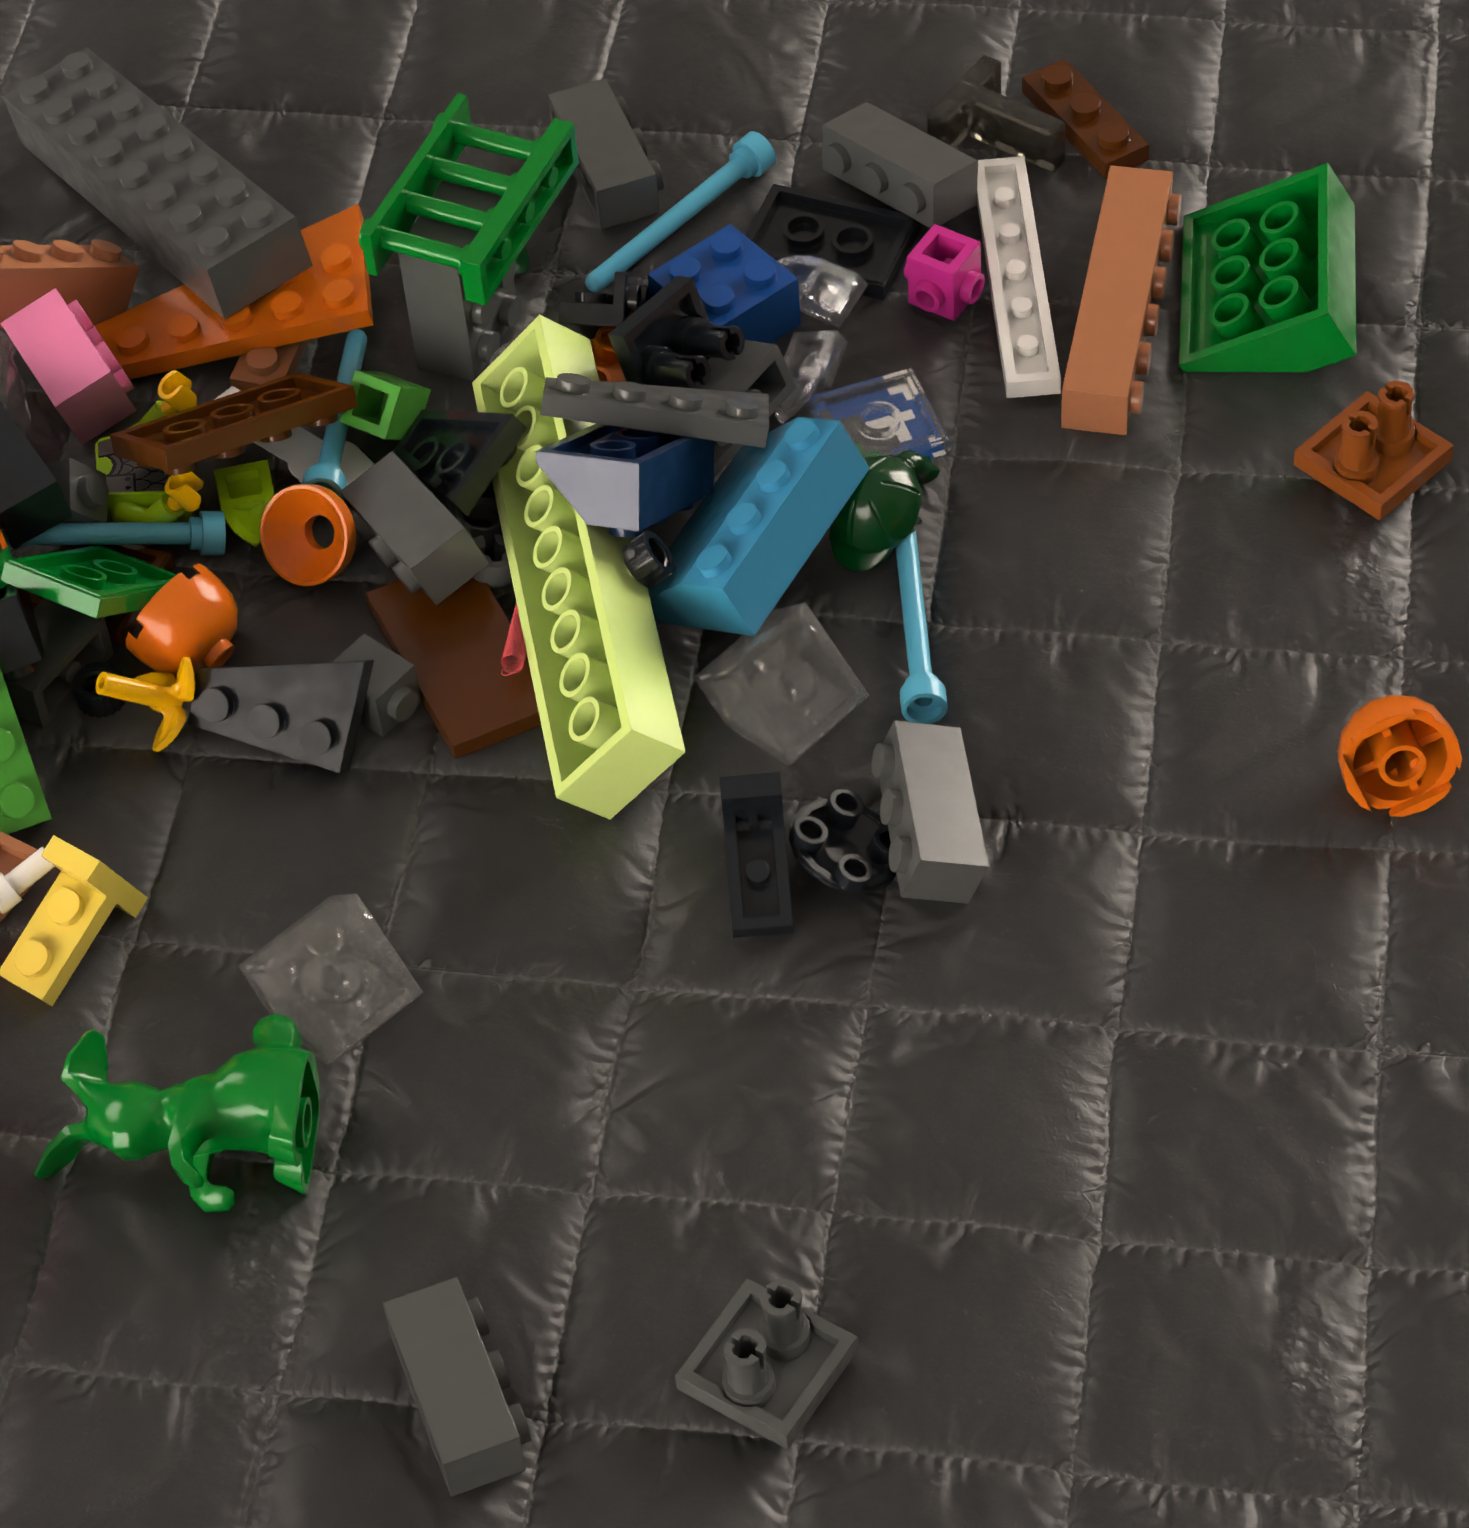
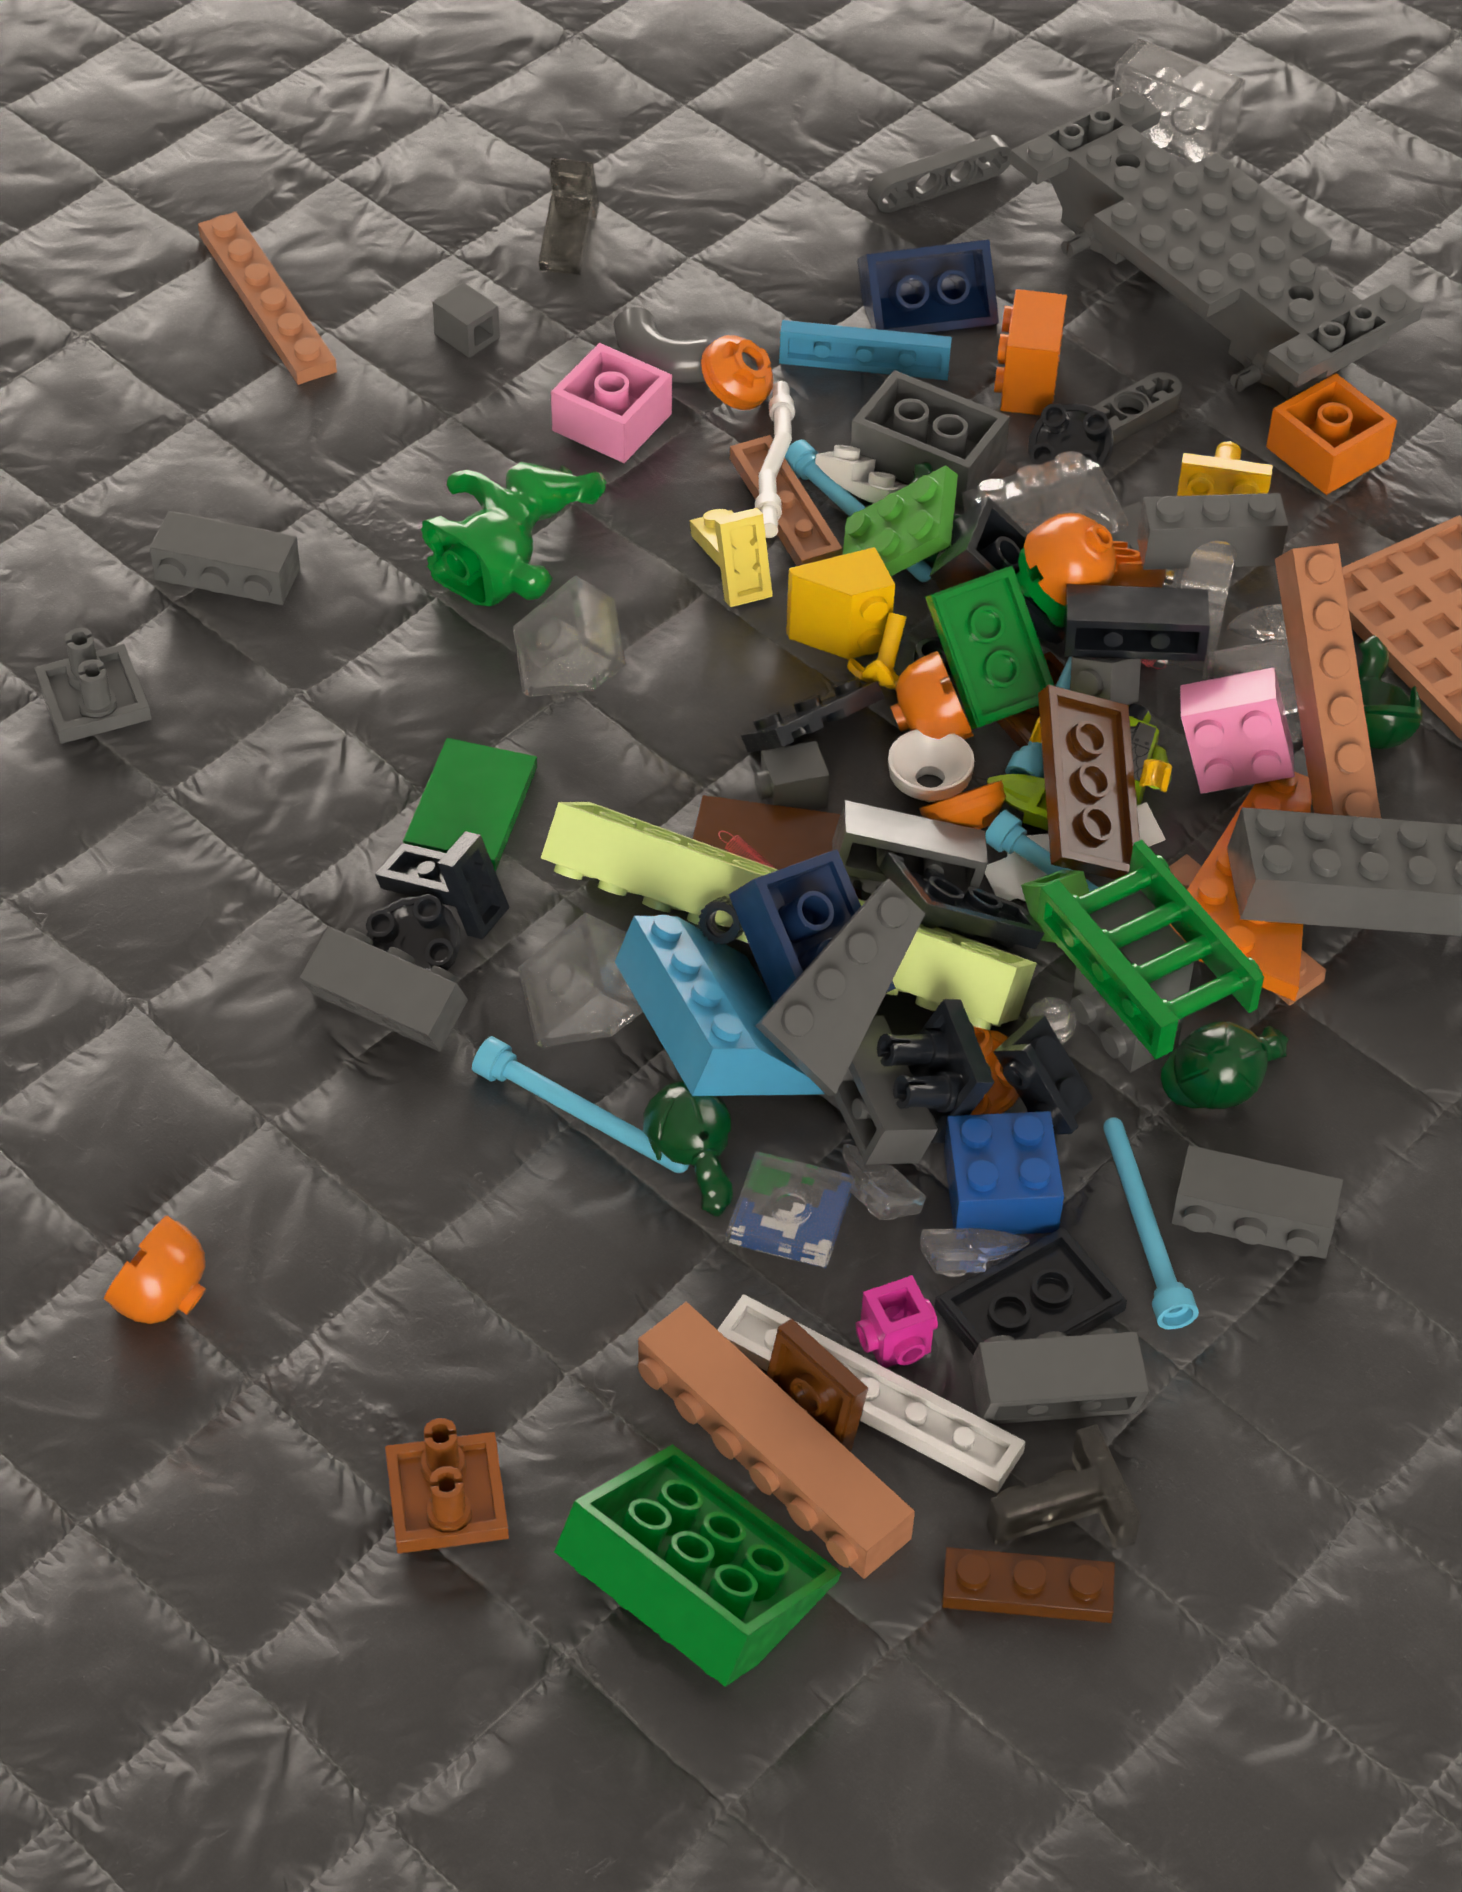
camera: 120 degrees right, 0 degrees up
(97, 751) = (840, 603): none -> yellow slope
(272, 575) = (920, 755): none -> white piece
(620, 929) = (473, 792): none -> green tile
(1064, 267) = (817, 1382): none -> reddish brown tile

